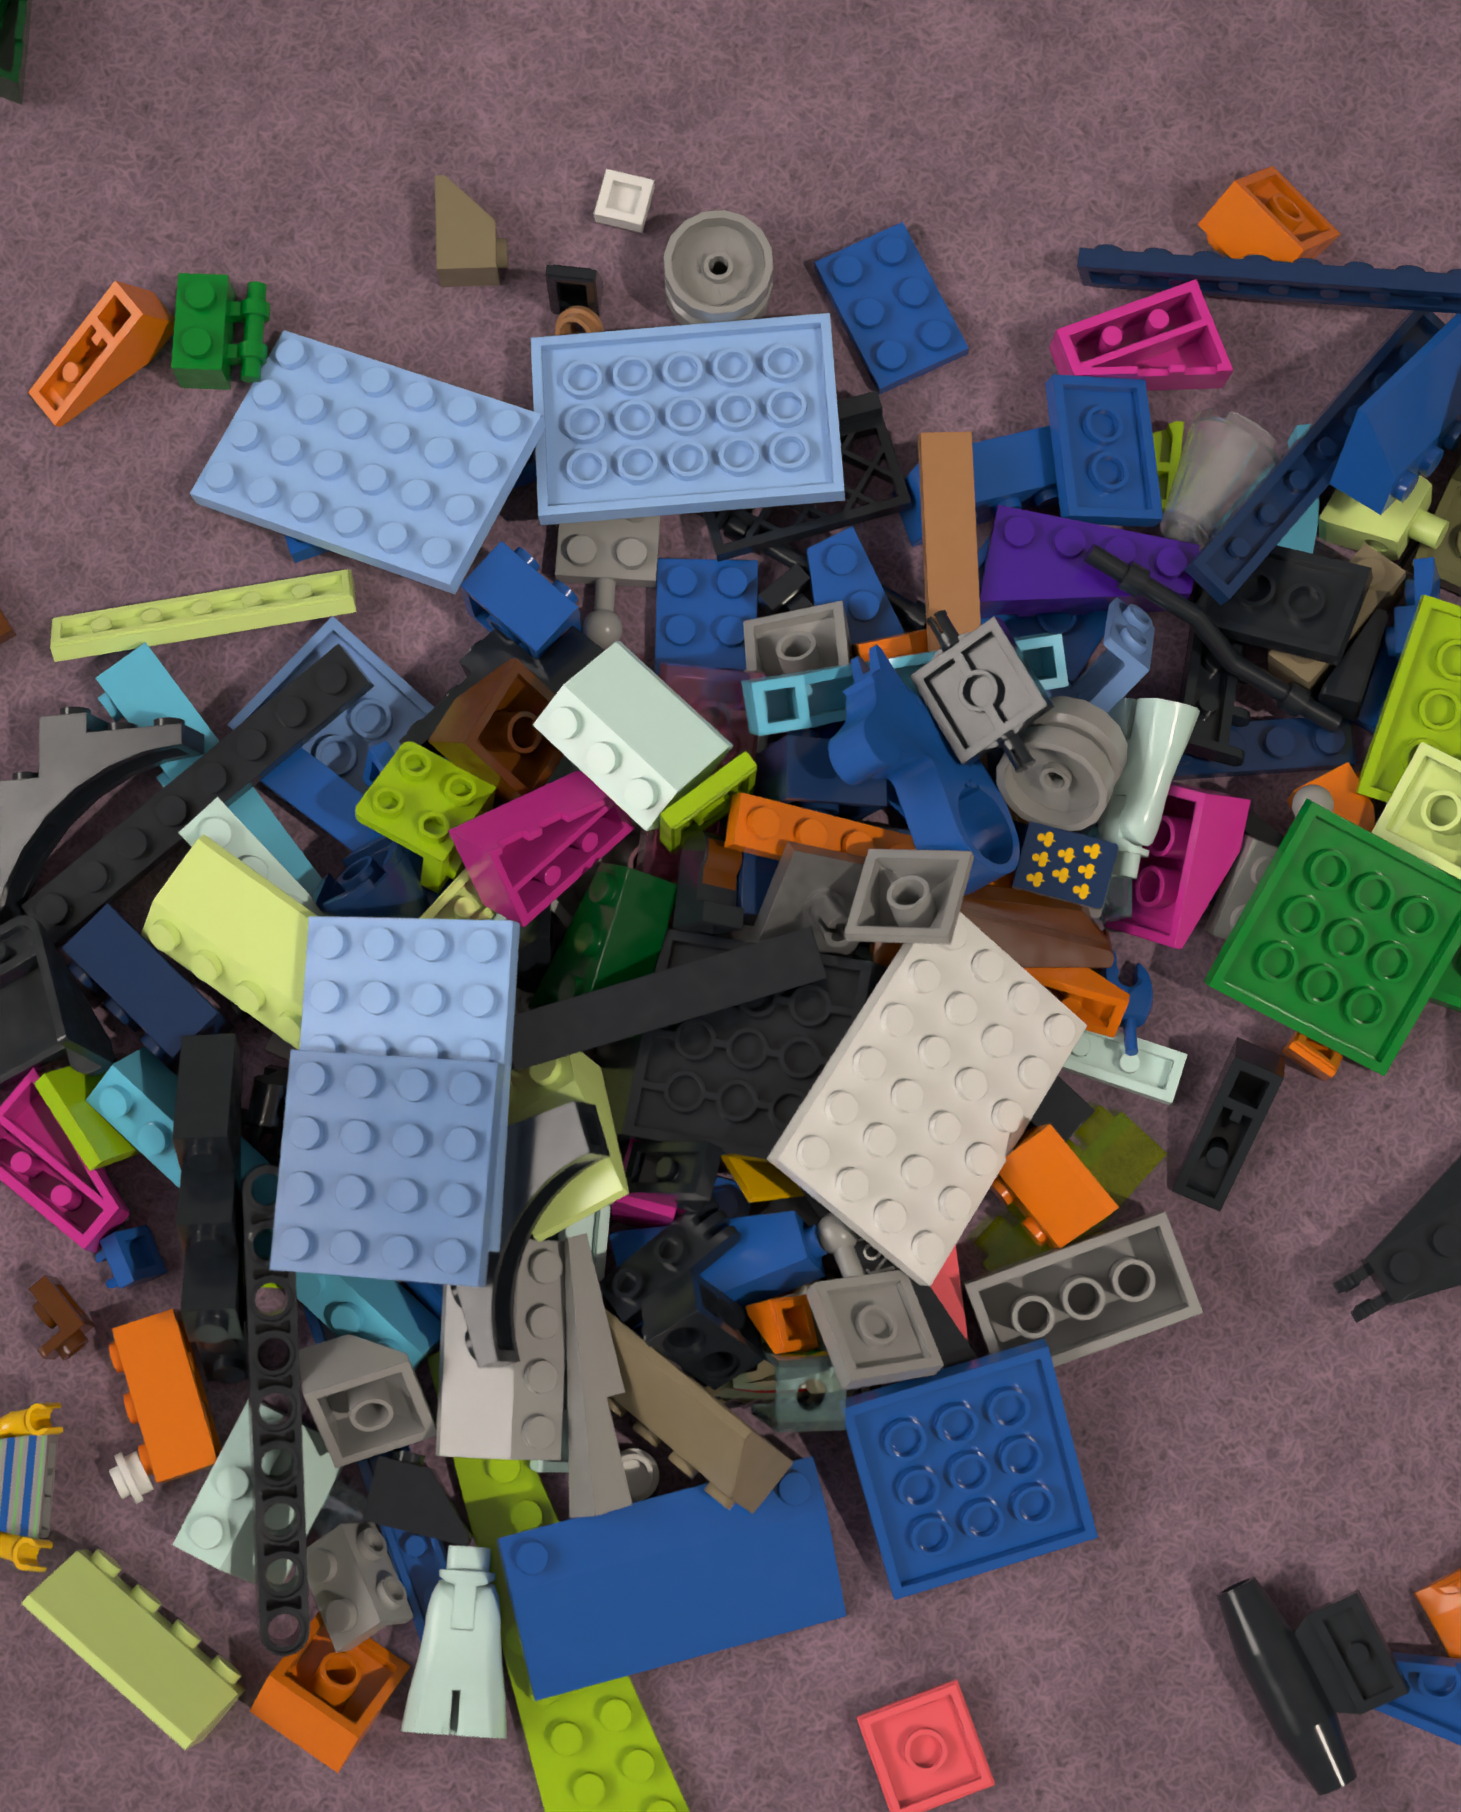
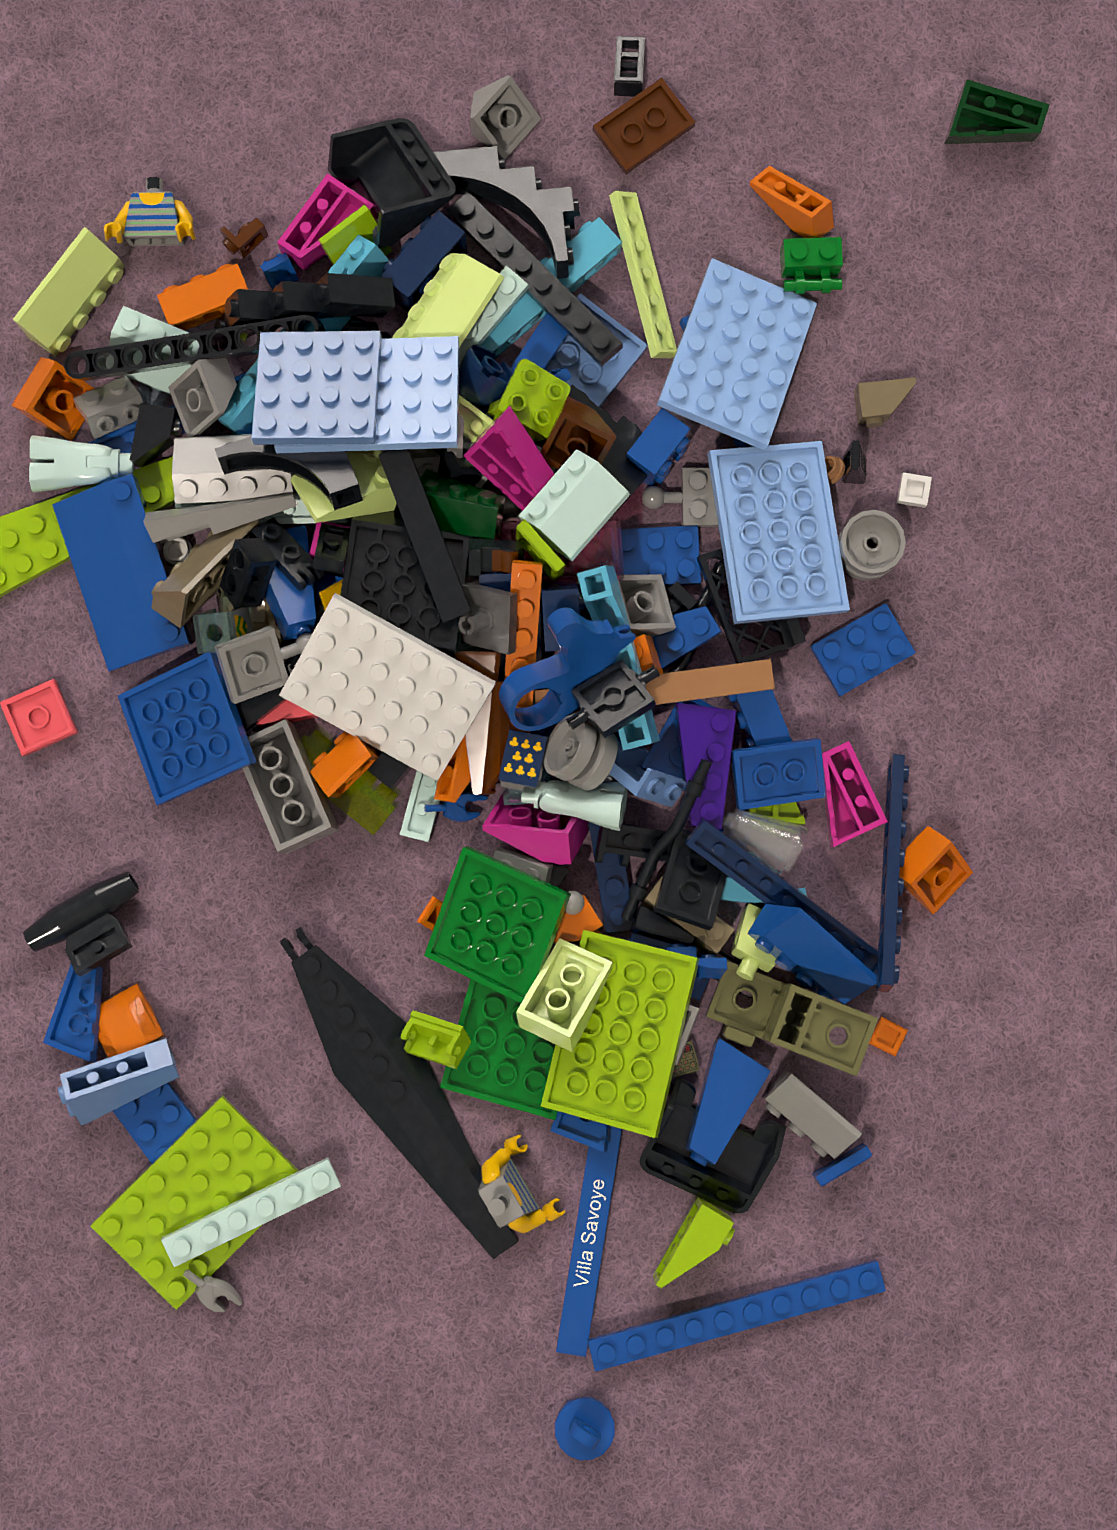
camera: 85 degrees right, 5 degrees up
(130, 1477) = (160, 282): white plate -> none
(785, 1323) = (254, 616): orange slope -> none
(909, 896) = (486, 660): light grey slope -> none
(1230, 1123) = (391, 868): black slope -> none

